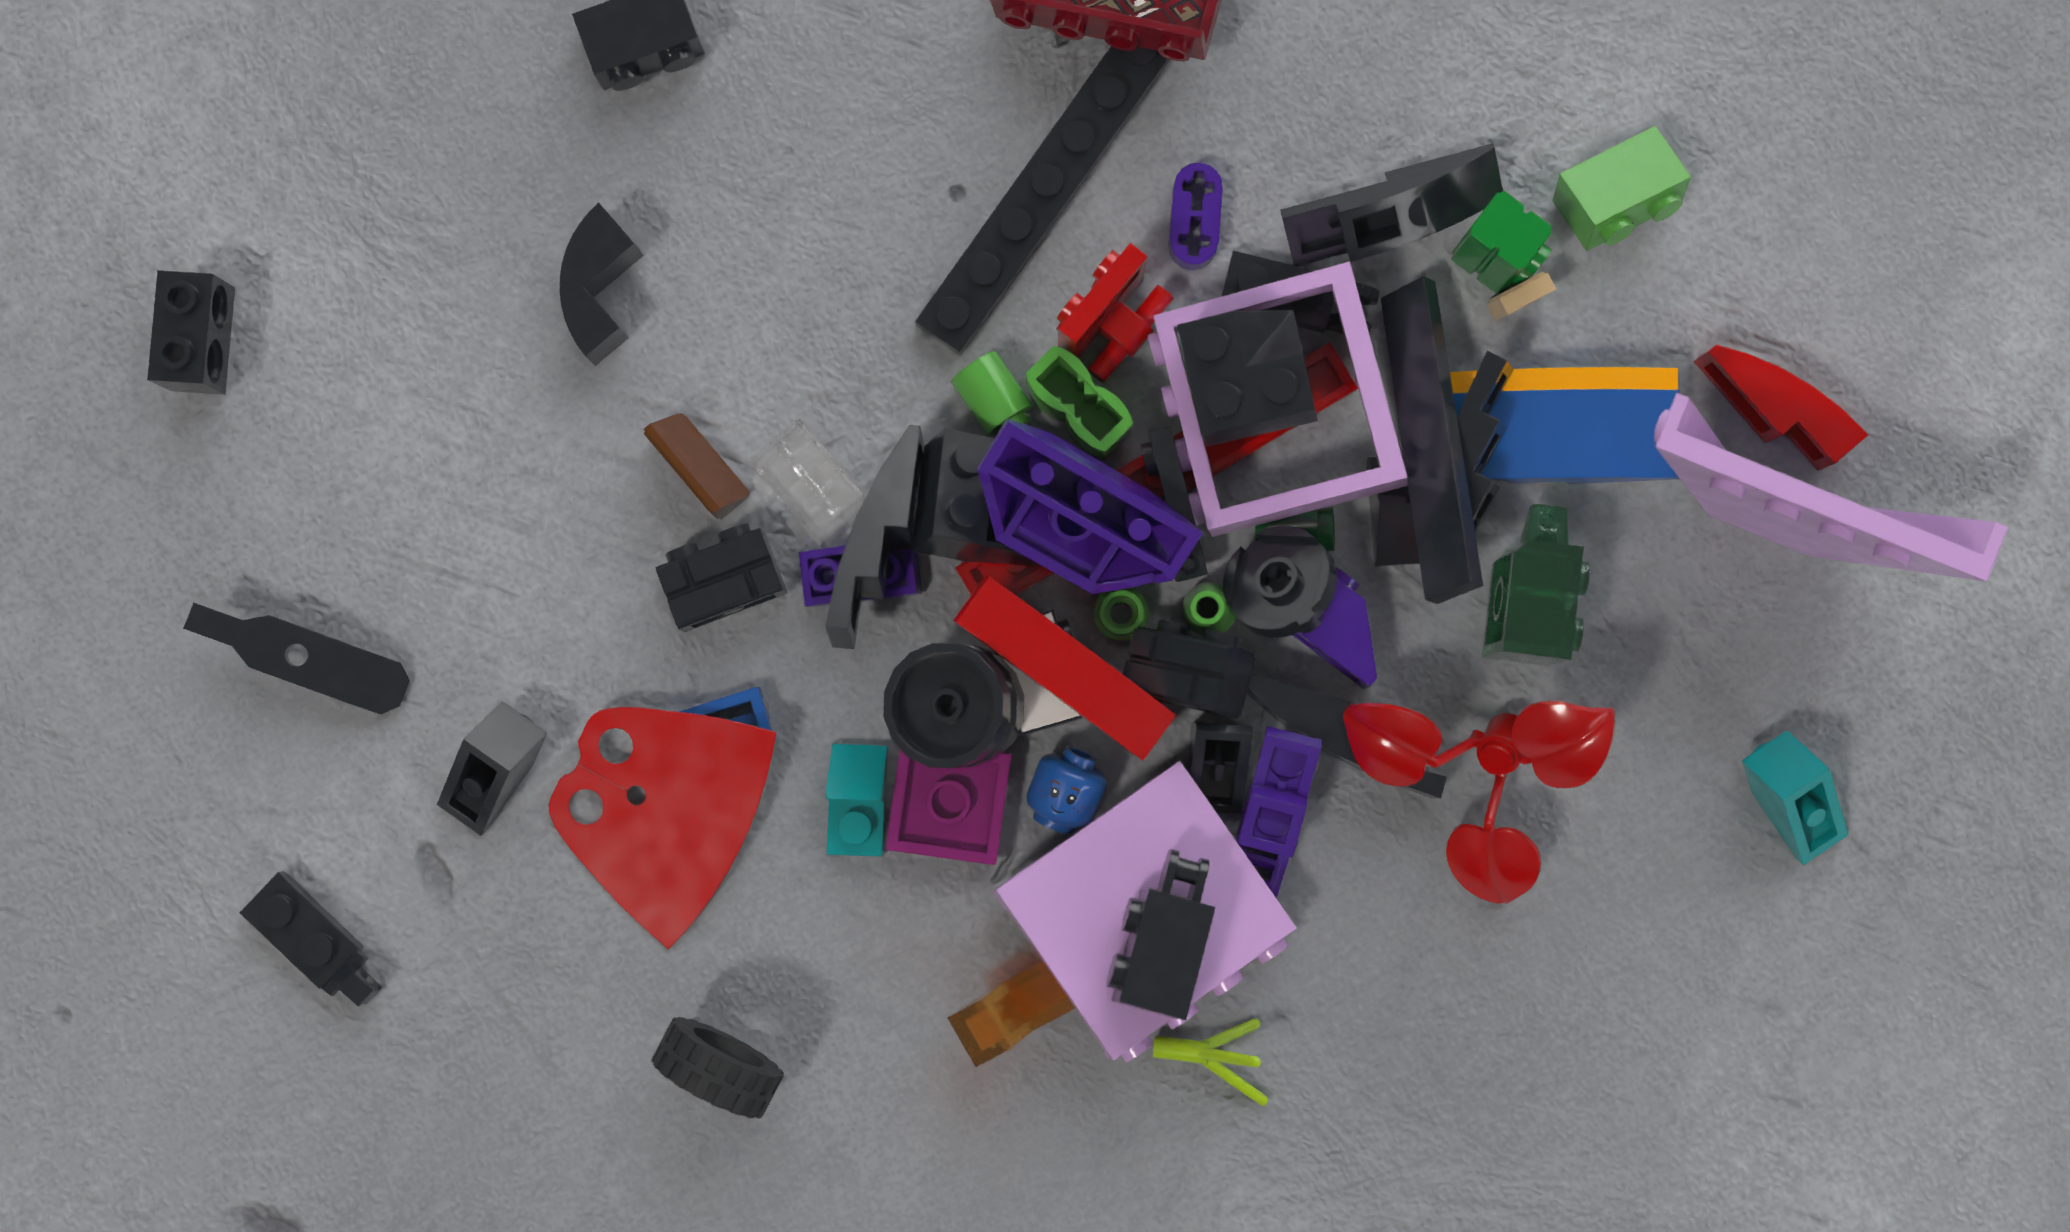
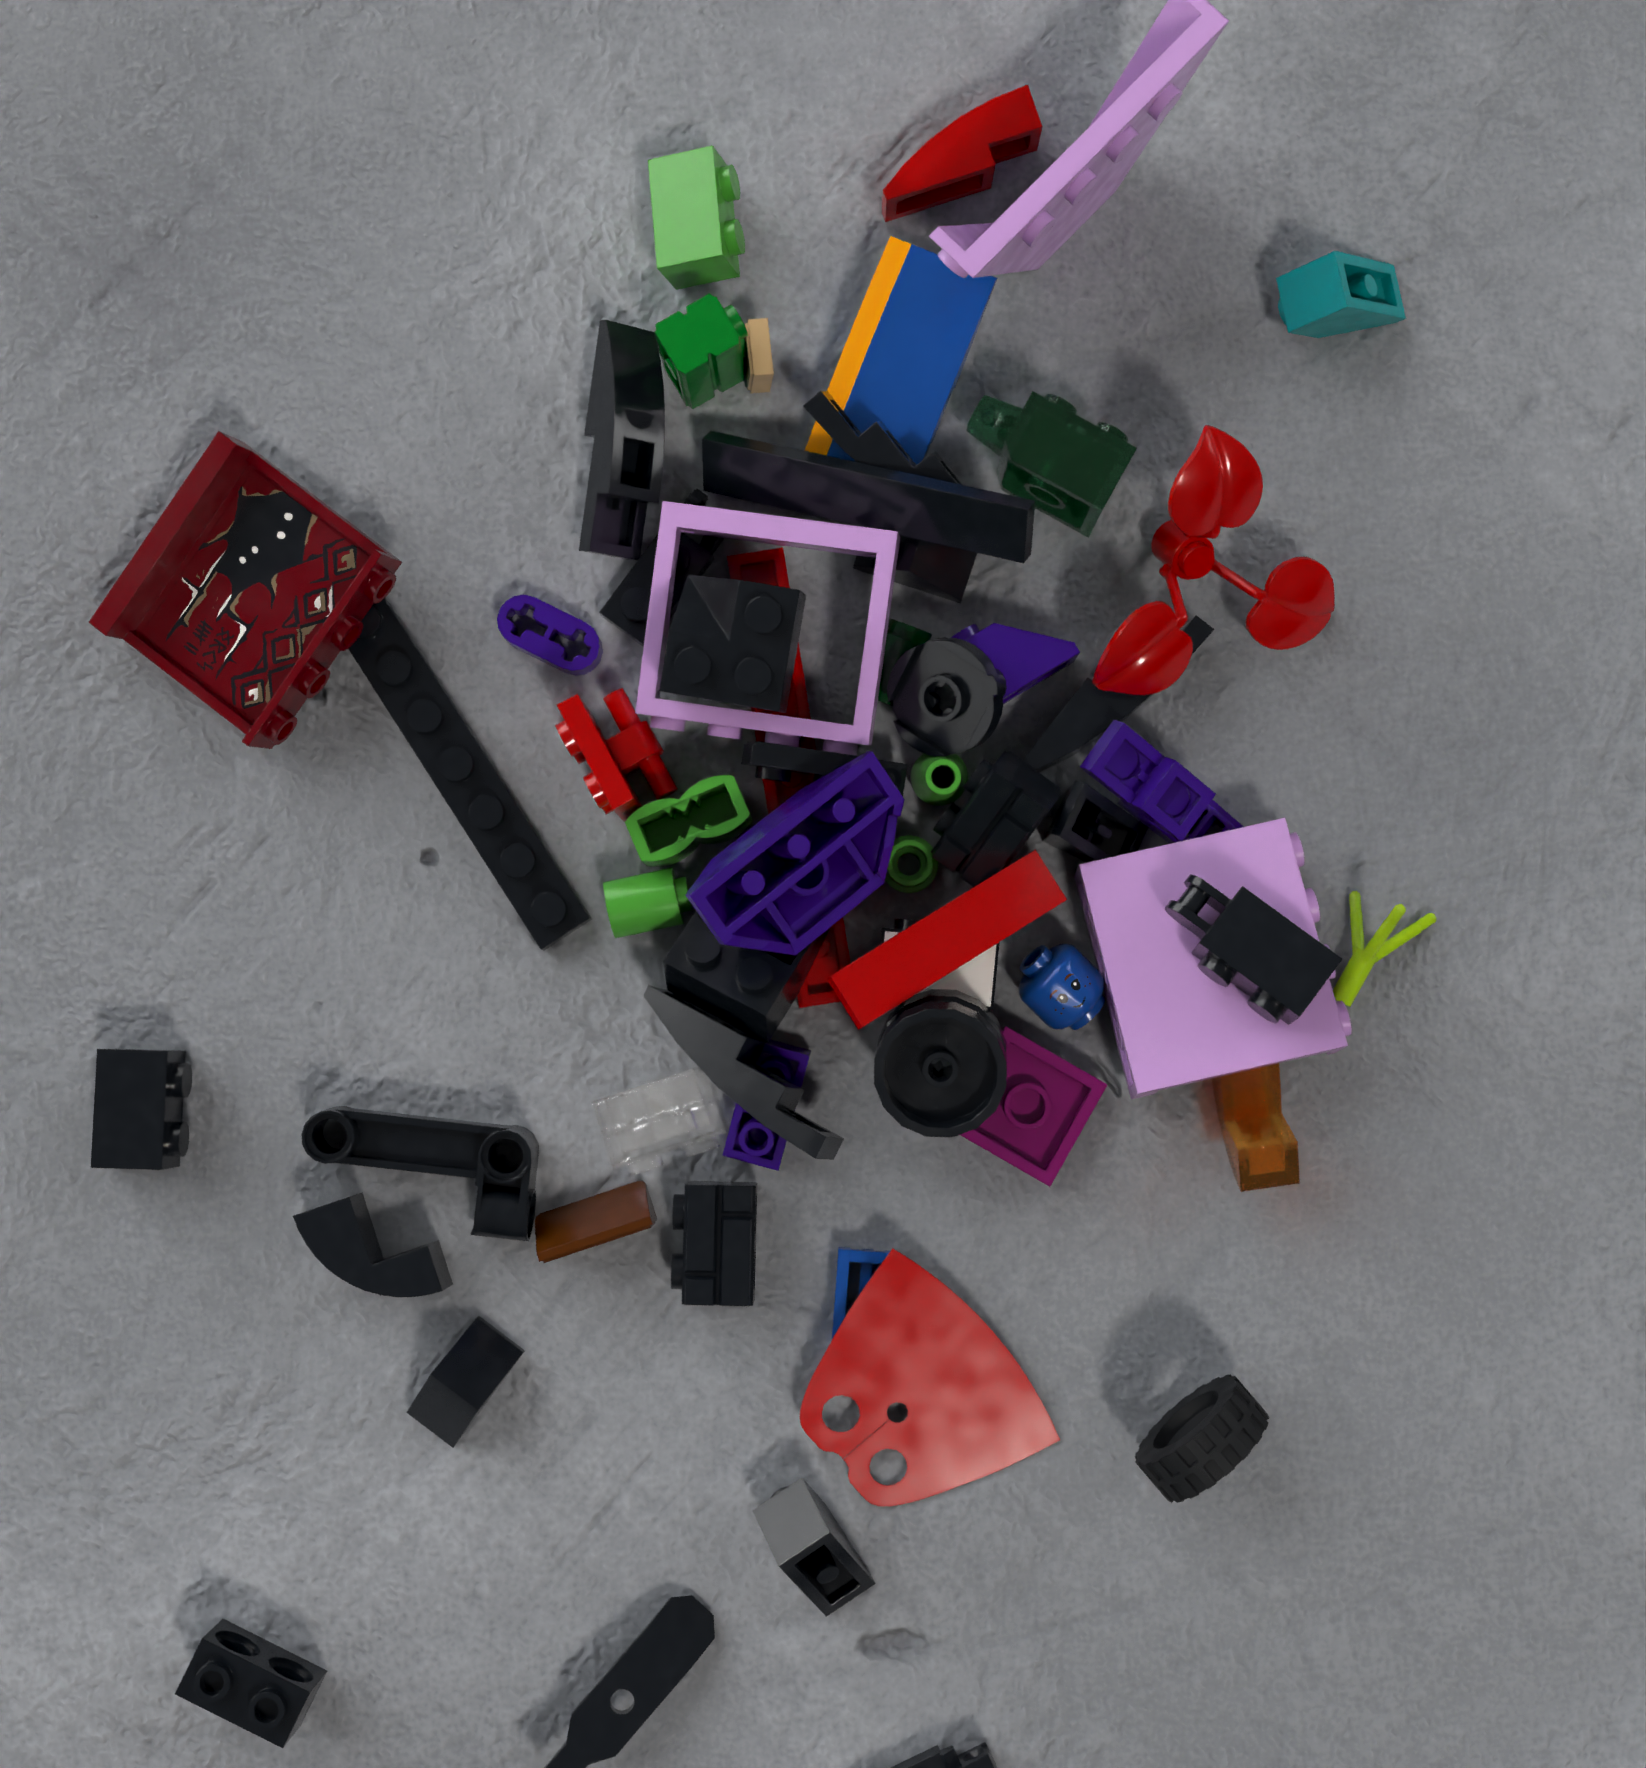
camera: 65 degrees left, 0 degrees up
(516, 409) = (465, 1381): none -> black slope
(711, 312) = (440, 1147): none -> black piece
(856, 800) = (988, 1195): teal slope -> none

